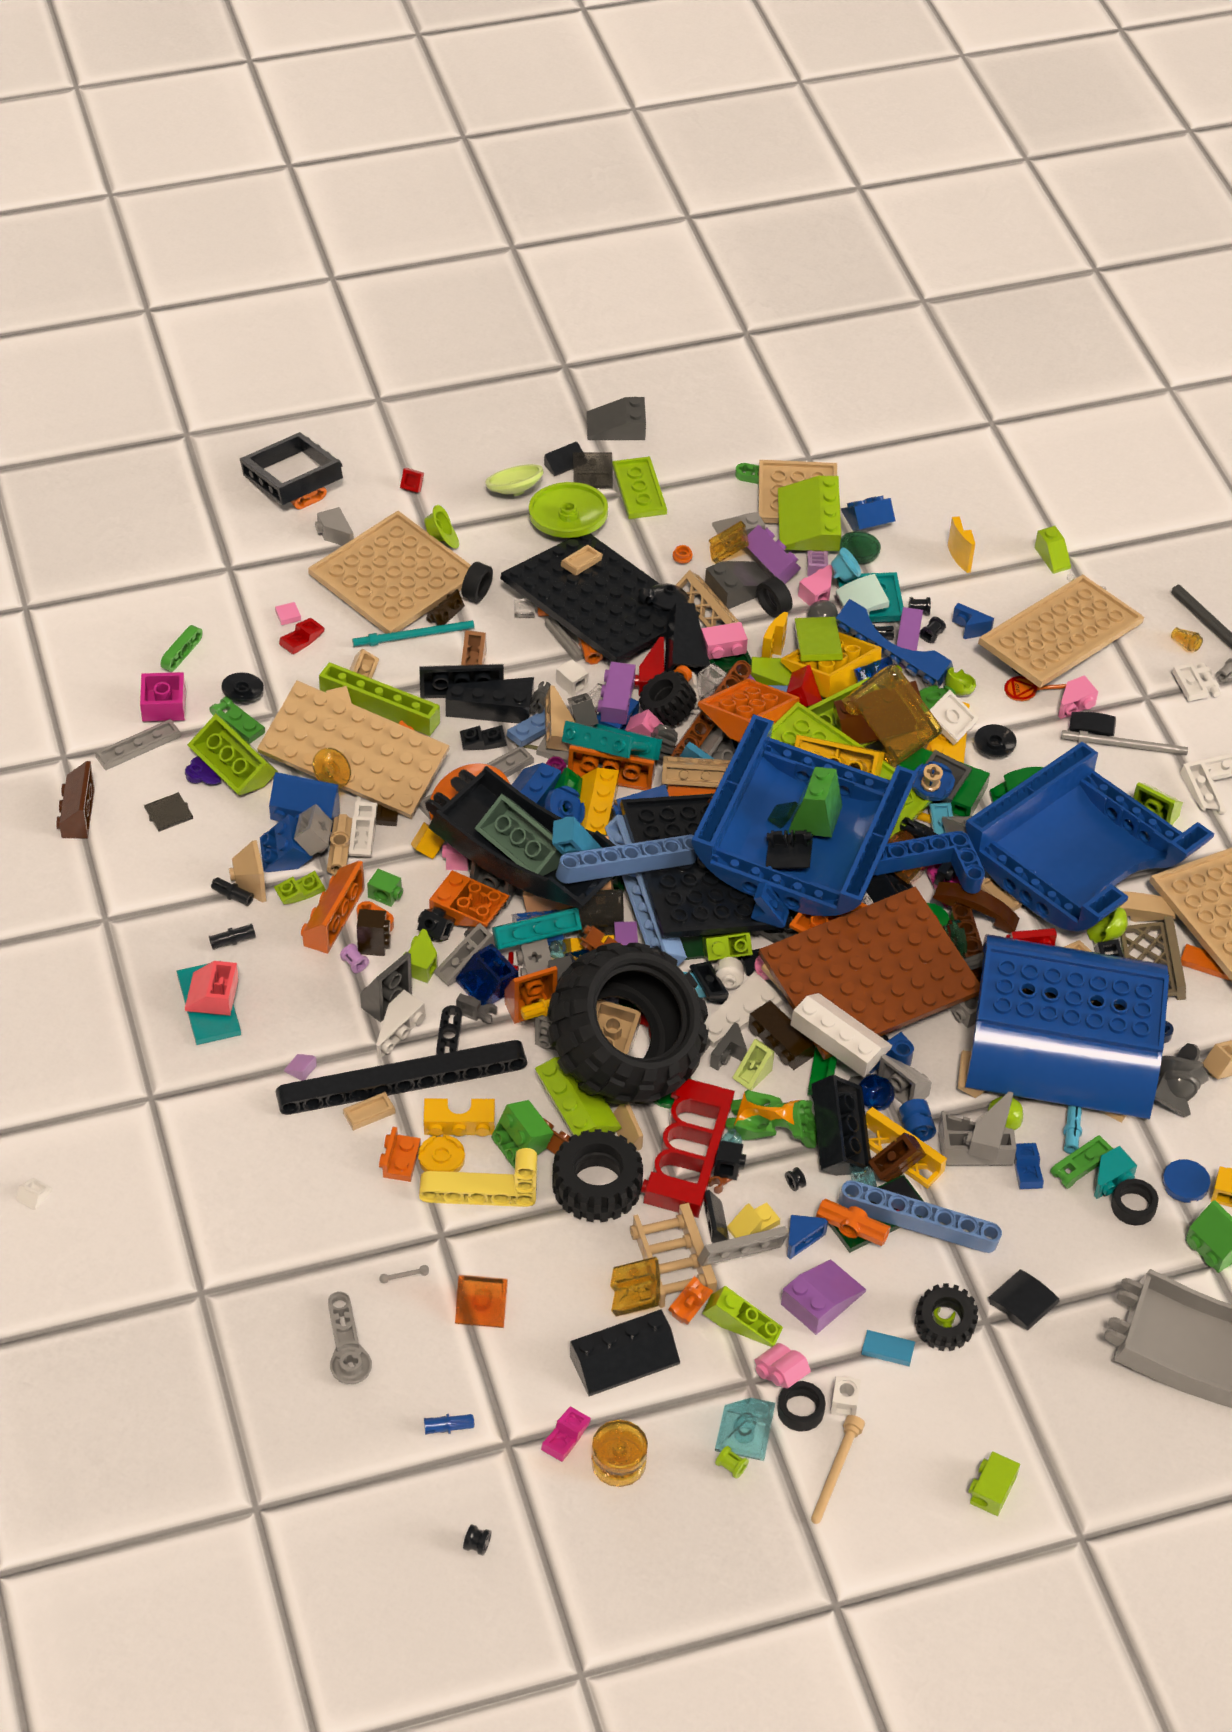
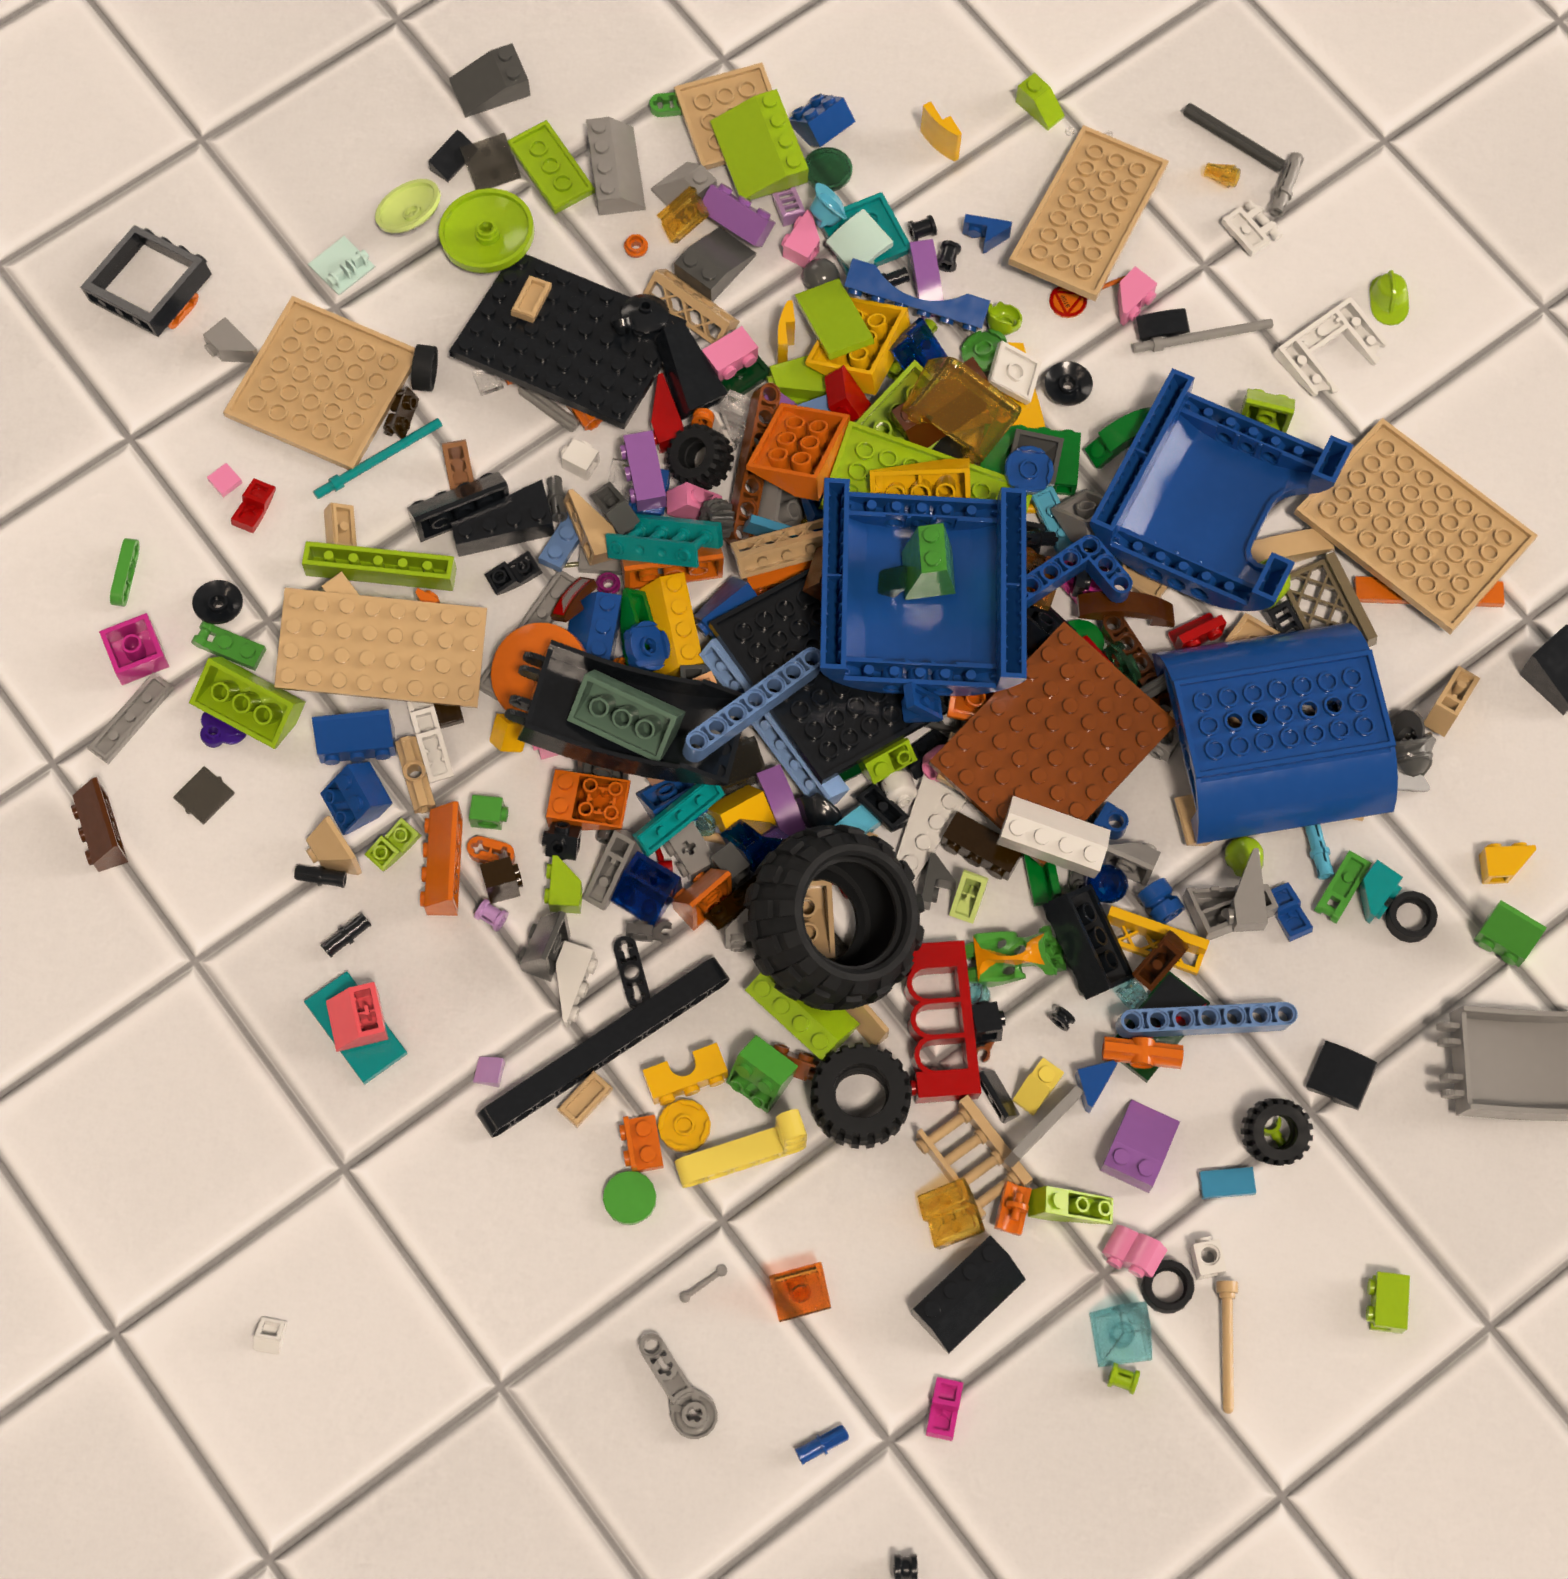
camera: 20 degrees left, 20 degrees up
(313, 830) = (382, 772): light grey brick -> none
(336, 763) = (378, 684): clear yellow dish -> none
(372, 1191) = (629, 1197): none -> bright green tile
(412, 480) = (290, 246): red tile -> none
(440, 527) = (352, 304): lime piece -> none
(450, 499) = (342, 265): none -> light aqua hinge
(519, 766) = (570, 601): none -> slope
(535, 1009) = (732, 922): yellow axle -> none
(571, 836) = (688, 708): dark azure slope -> none
(593, 938) = (746, 811): dark orange hinge -> none
(619, 1453) = (1006, 1432): clear yellow wheel -> none
(689, 498) = (615, 166): none -> light grey slope
(774, 597) = (762, 274): black tyre -> none
(789, 850) = (917, 627): black hinge -> none
(934, 778) = (1035, 467): tan bush -> none
(1186, 1180) = (1452, 870): blue tile -> none

